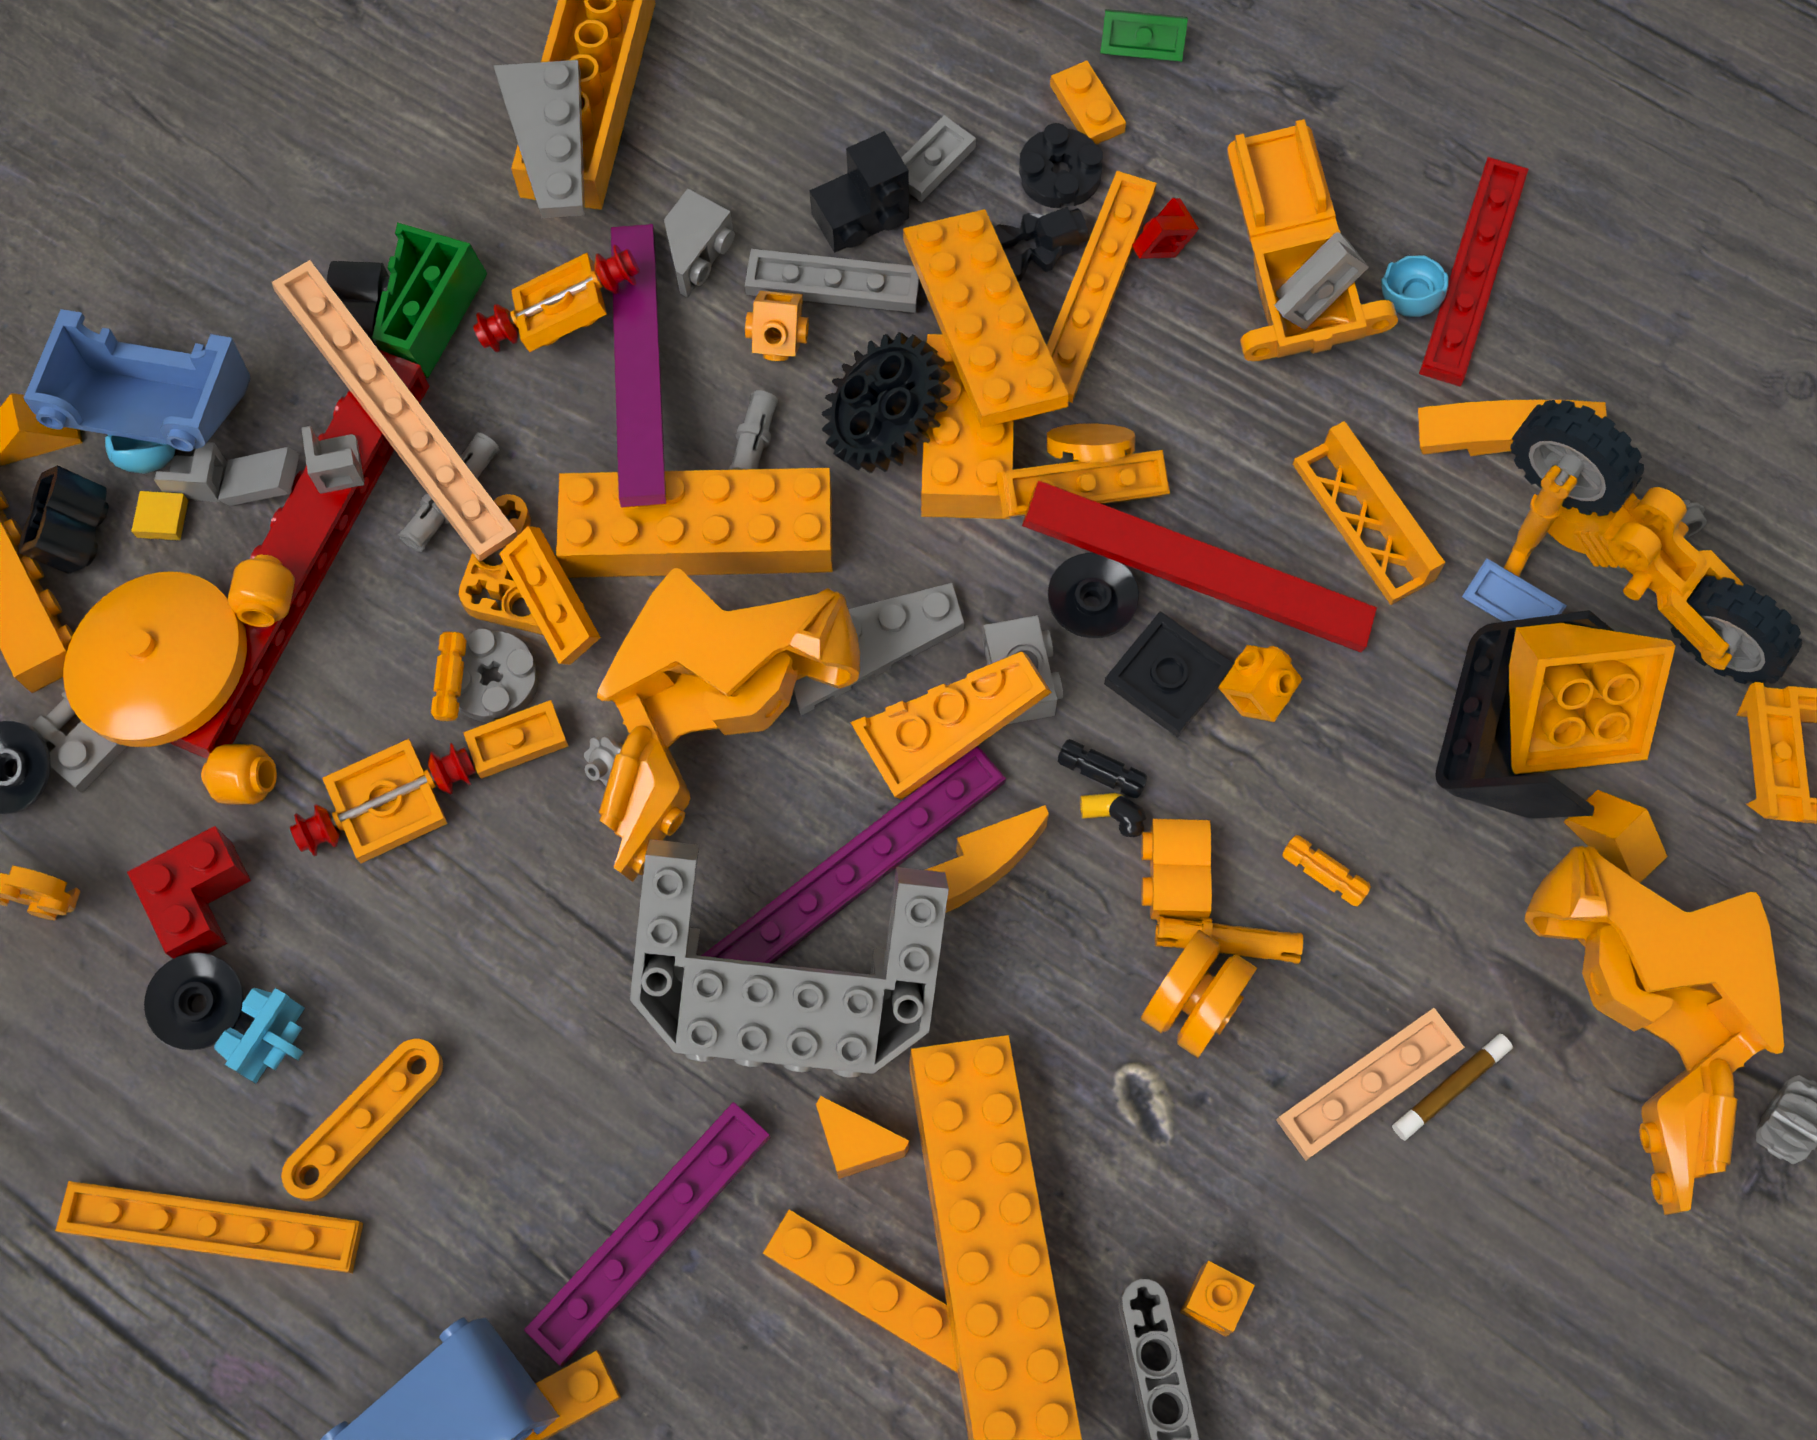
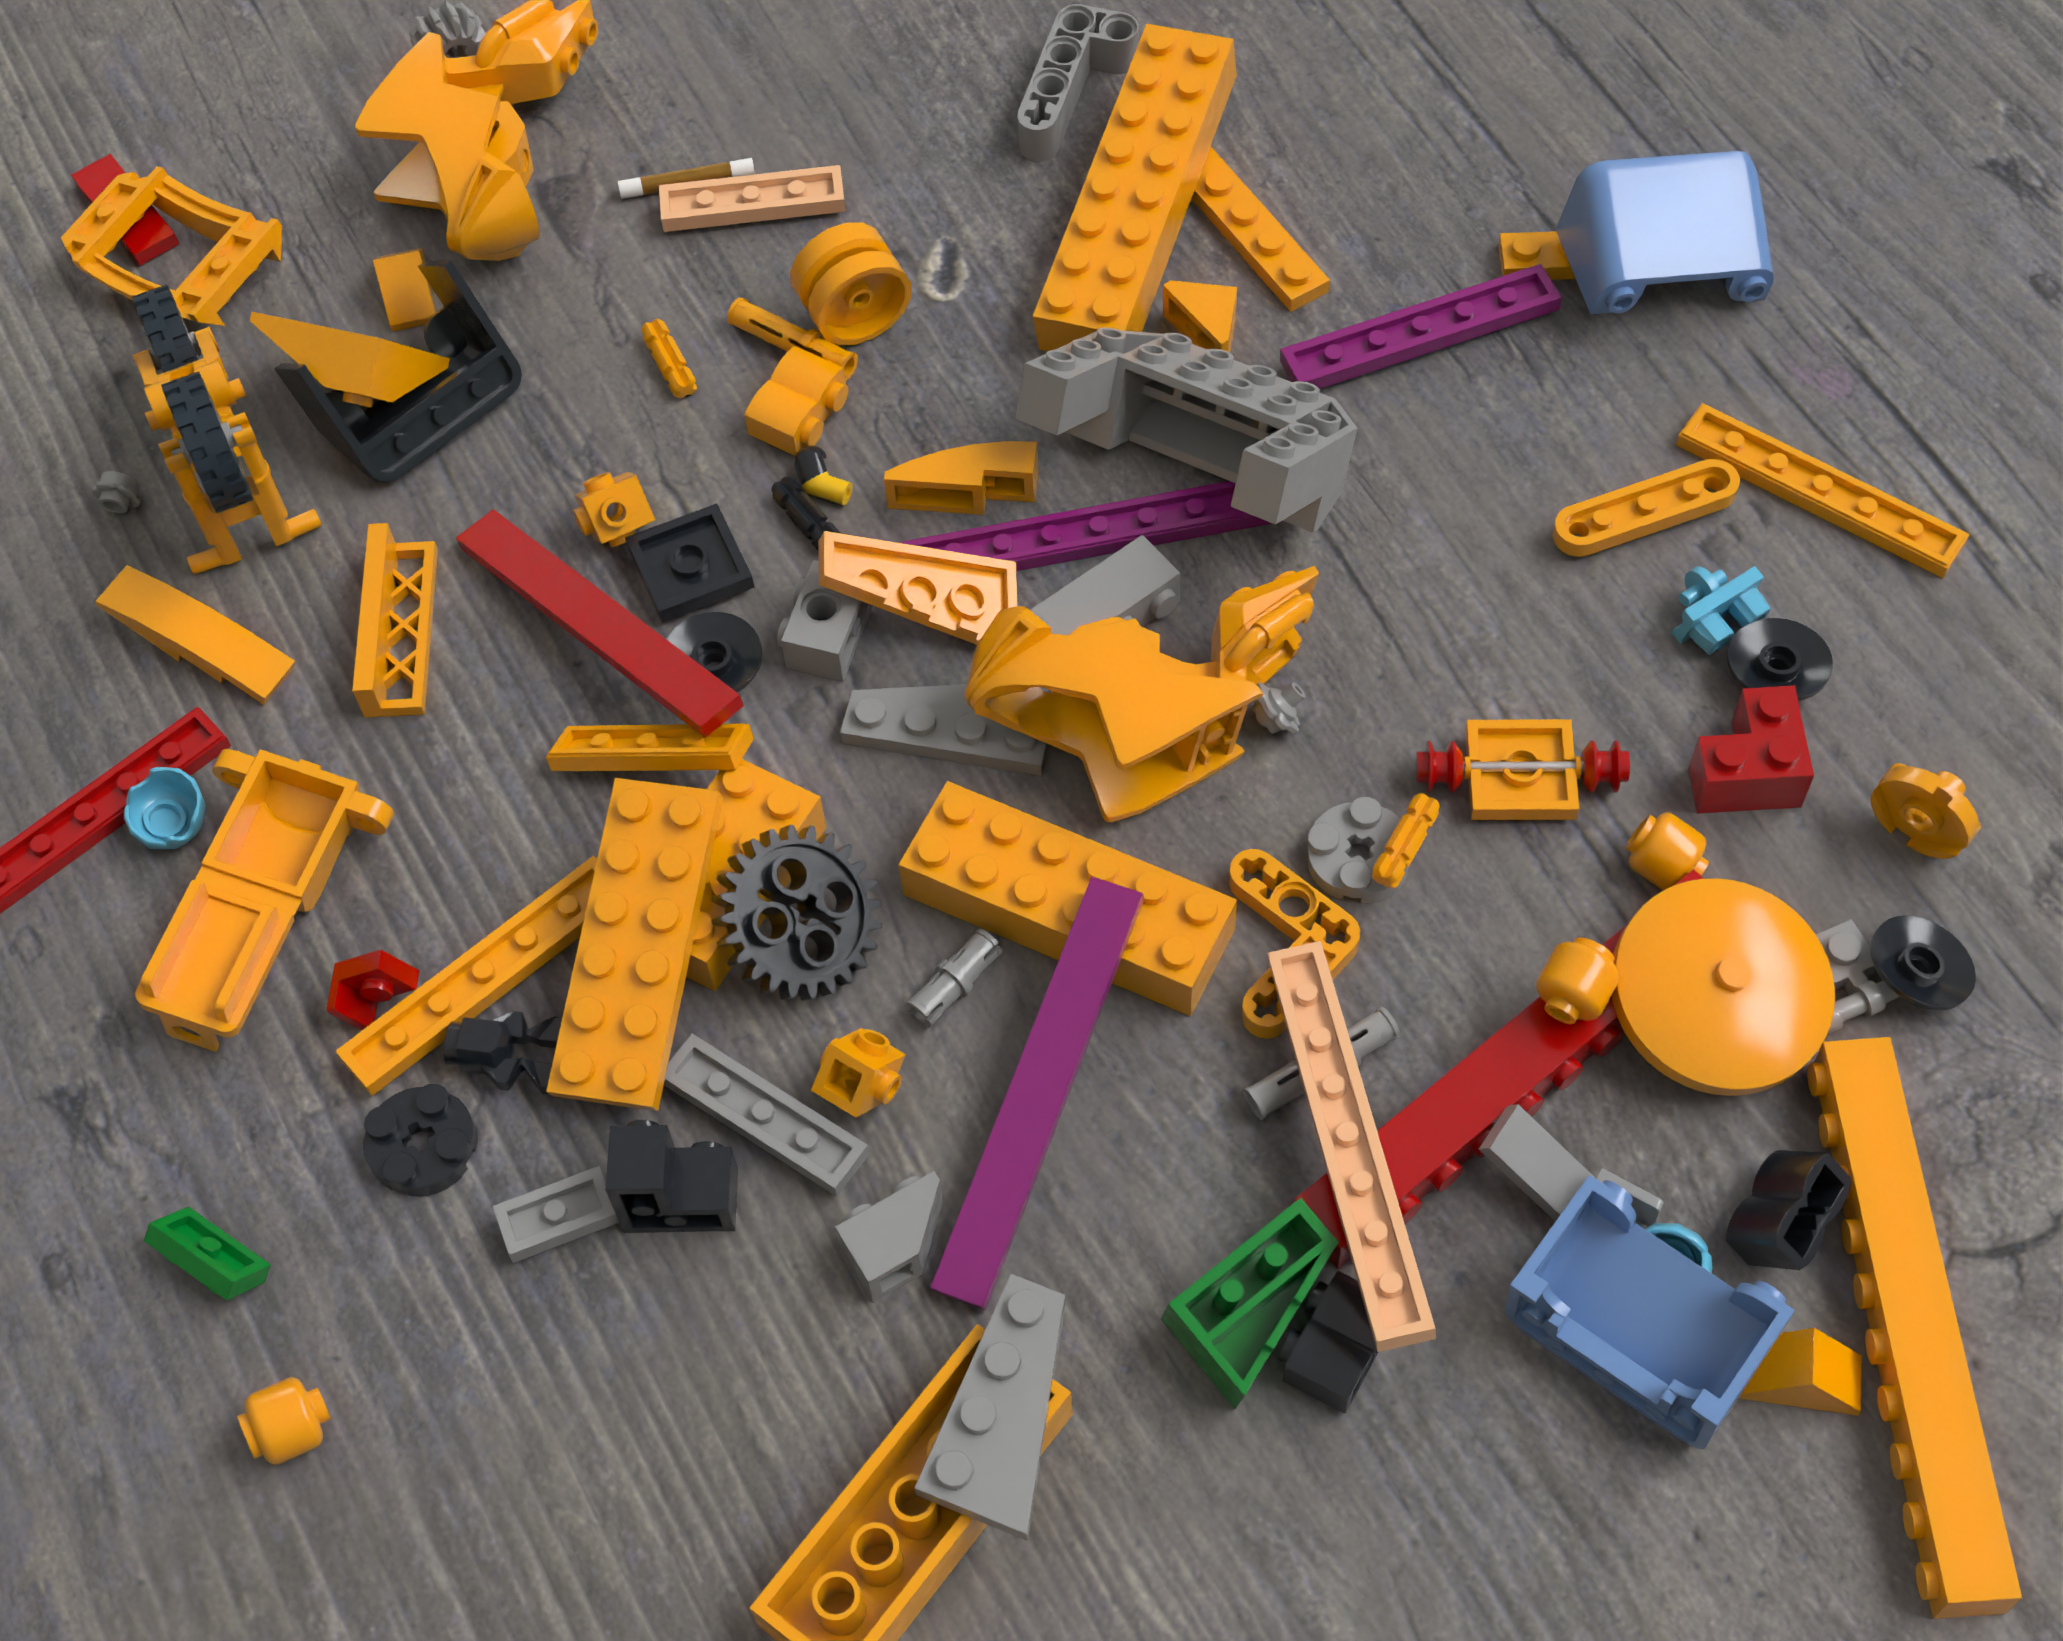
camera: 150 degrees left, 10 degrees down
(160, 515) = (1677, 1187): yellow tile -> none
(333, 461) = (1440, 1106): light grey panel -> none
(515, 739) = (1361, 771): light orange plate -> none
(549, 595) = (1262, 872): light orange plate -> none
(557, 301) = (1095, 1213): light orange plate -> none
(795, 786) = (1126, 585): none -> light grey brick
(1087, 102) = (332, 1209): light orange plate -> none
(1091, 442) = (592, 773): light orange tile -> none
(1217, 1298) = (978, 109): light orange brick -> none
(1320, 281) = (264, 824): light grey panel -> none
(1508, 595) = (329, 491): medium blue tile -> none

